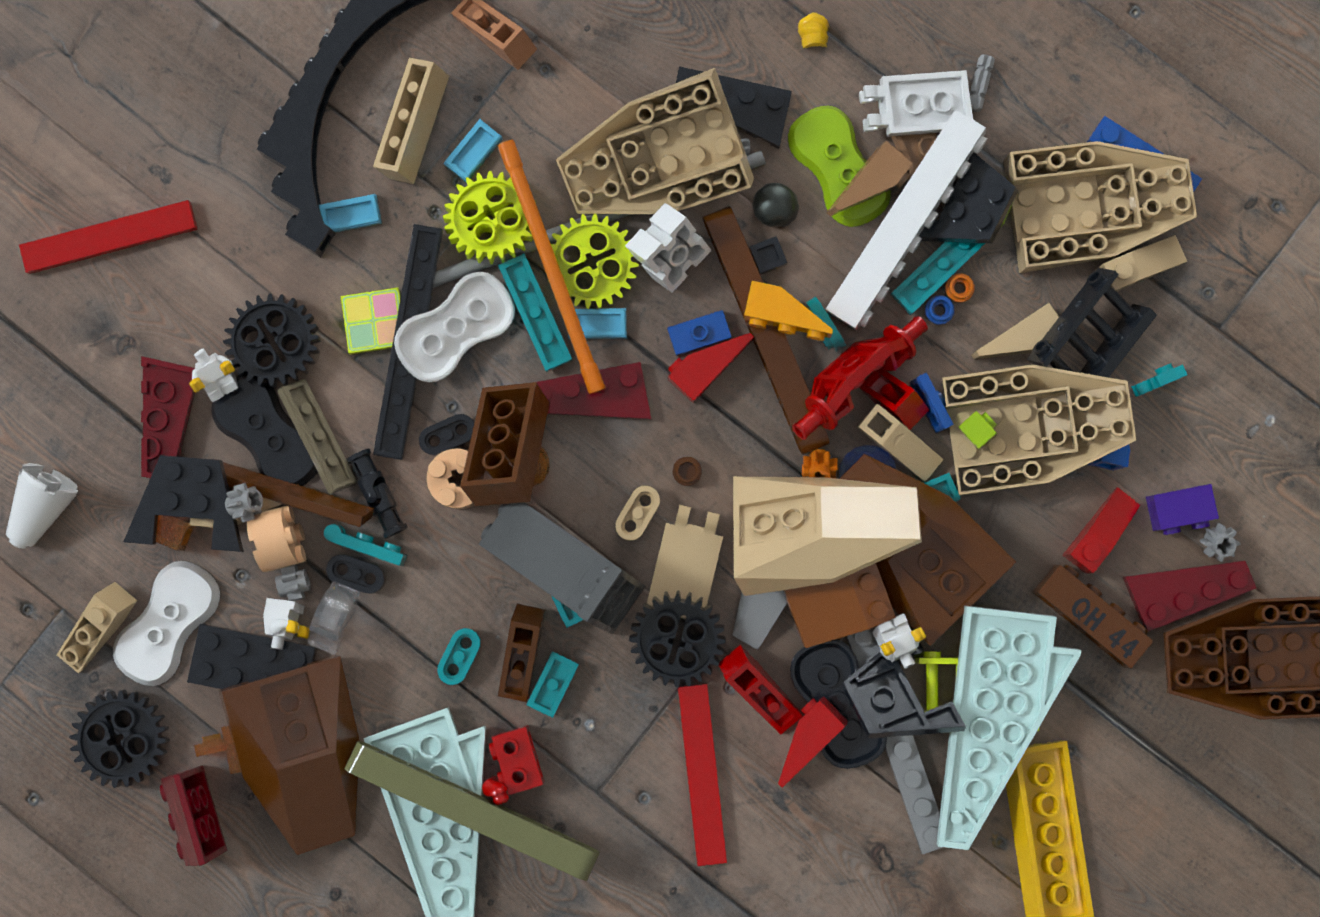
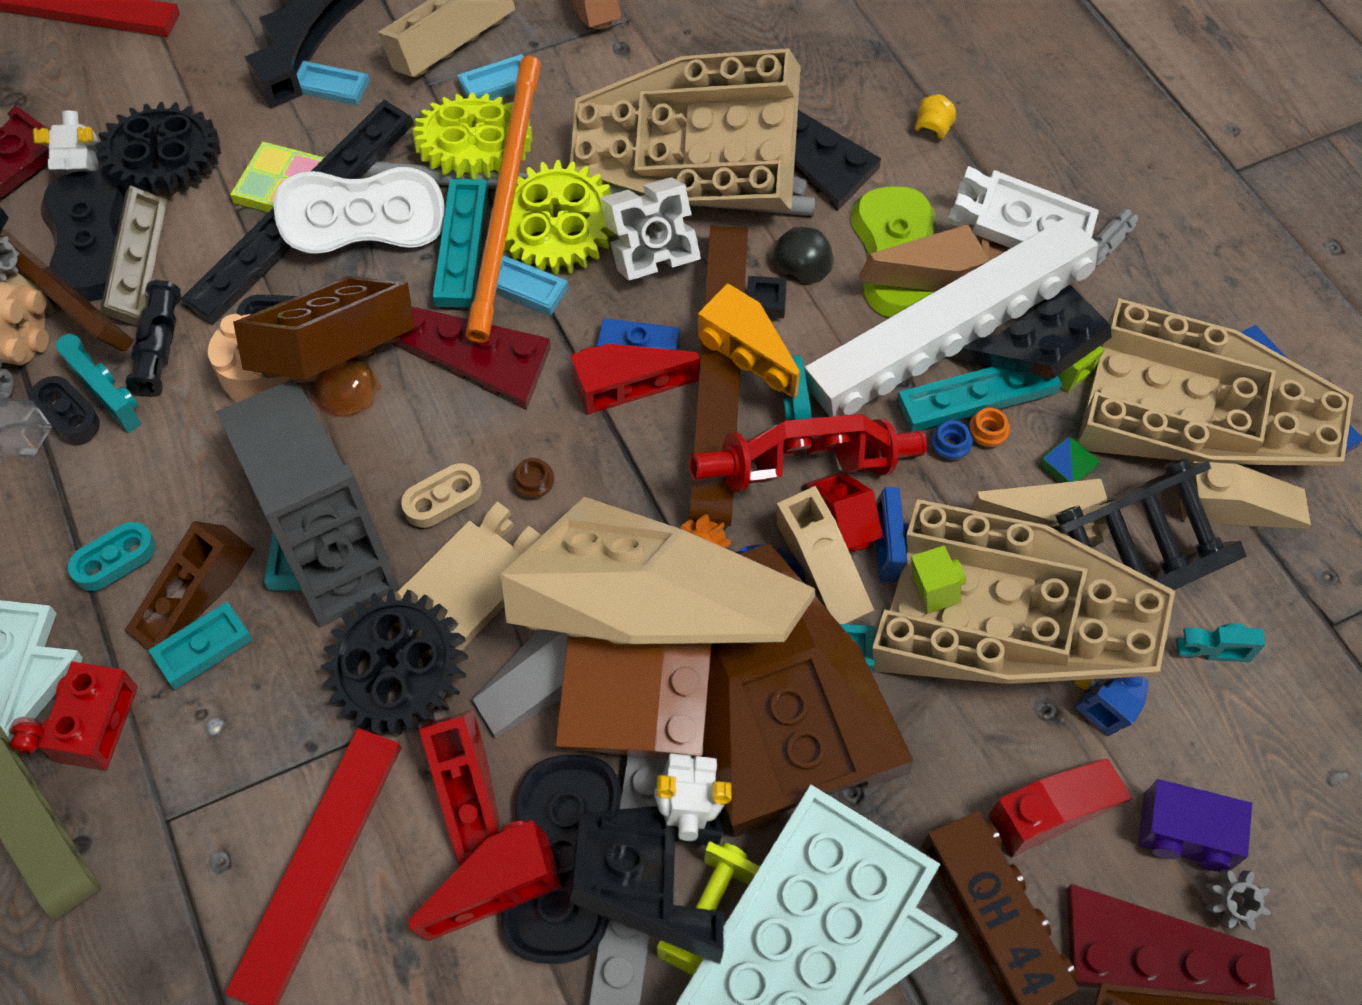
camera: 25 degrees right, 25 degrees down
(1021, 289) = (1069, 462): none -> green tile

